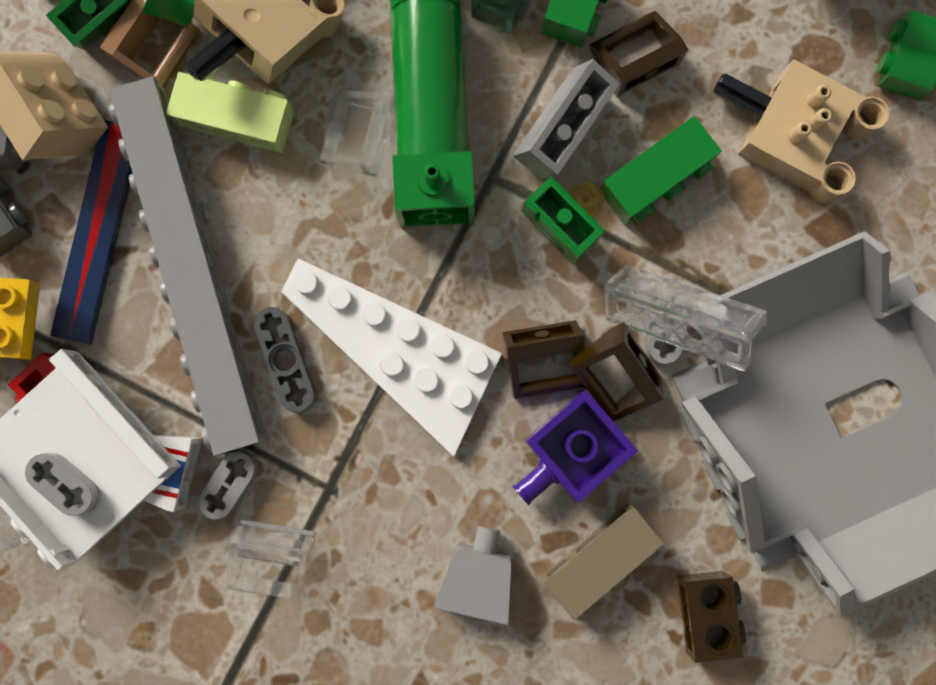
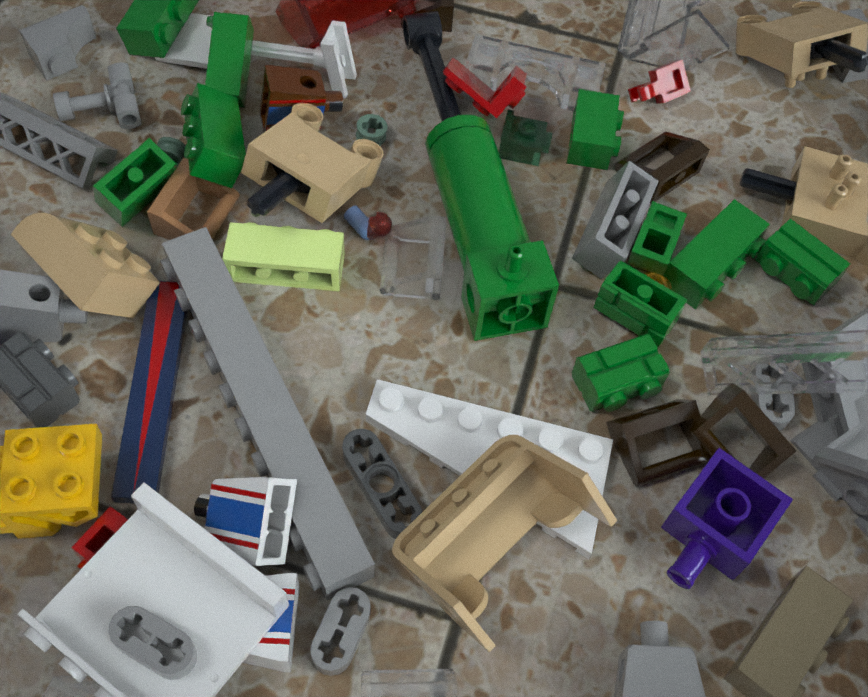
camera: 15 degrees left, 25 degrees down
(158, 383) = (250, 516): none -> white torso
(321, 88) = (368, 227): none -> arm
(353, 418) = (485, 517): none -> tan windscreen
(526, 289) = (620, 373): none -> green brick
(601, 148) = (657, 238): none -> green brick
(744, 194) = (801, 262): none -> green brick

